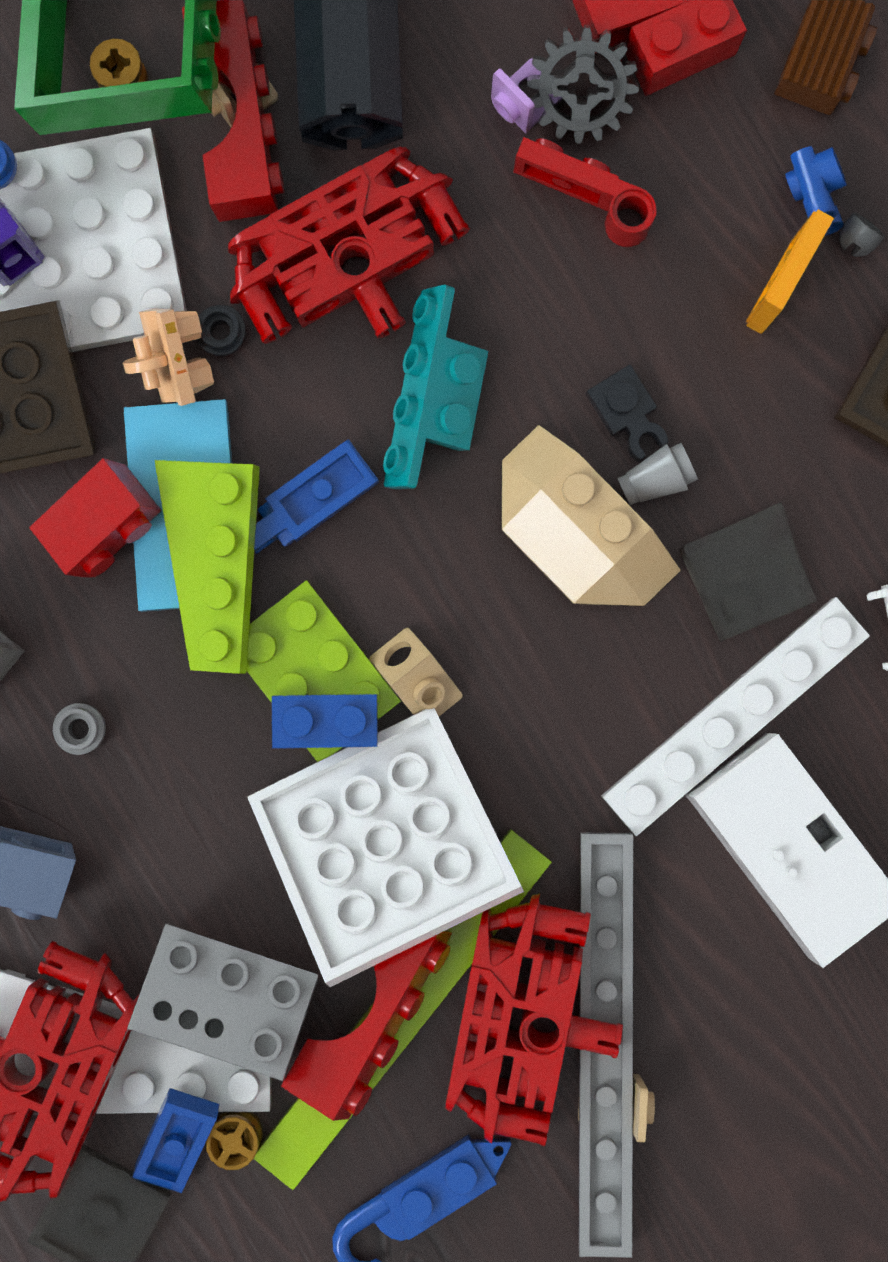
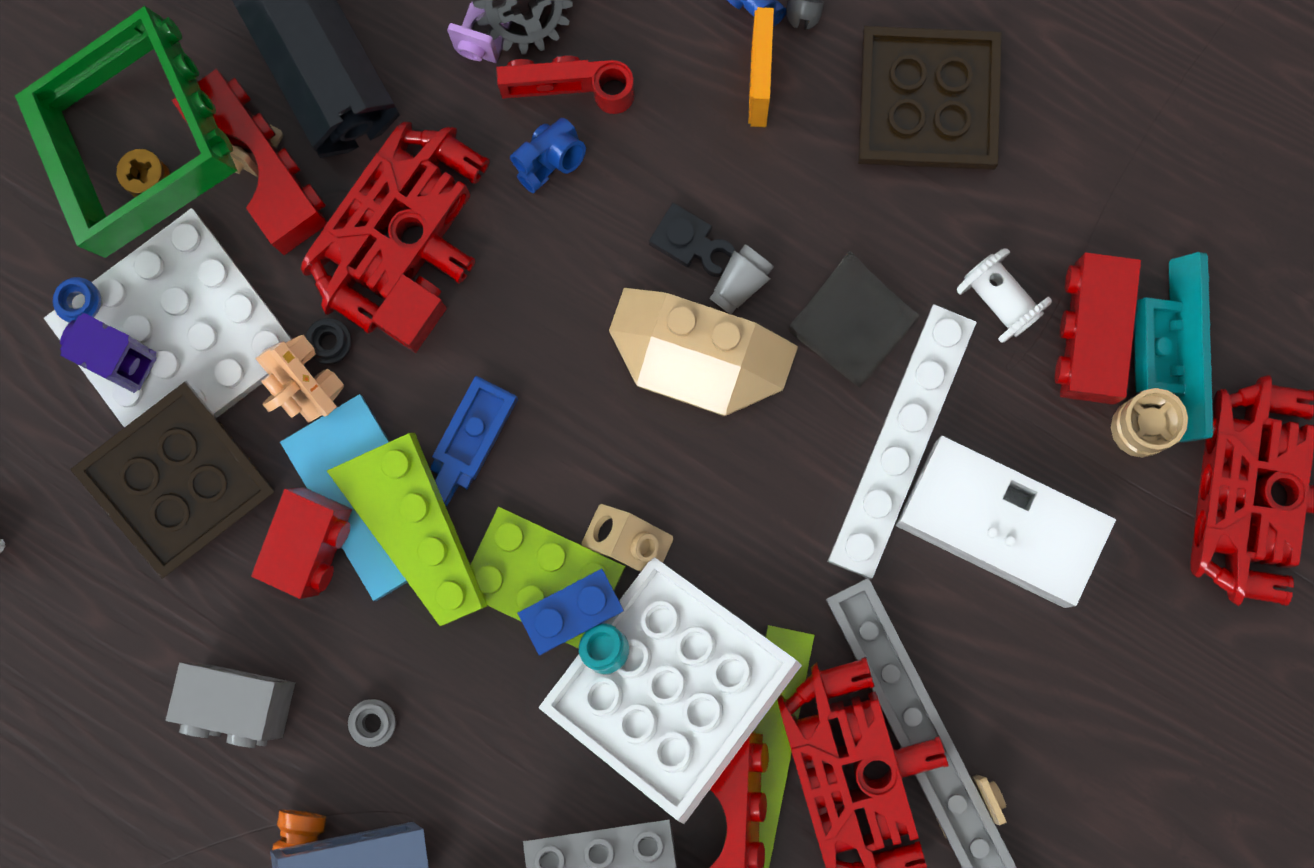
camera: 15 degrees left, 5 degrees down
(315, 342) = (410, 312): none -> red brick
(339, 773) = (604, 648): none -> teal tile
(437, 390) = (528, 300): teal bracket -> none
(536, 248) = (549, 149): none -> blue plate

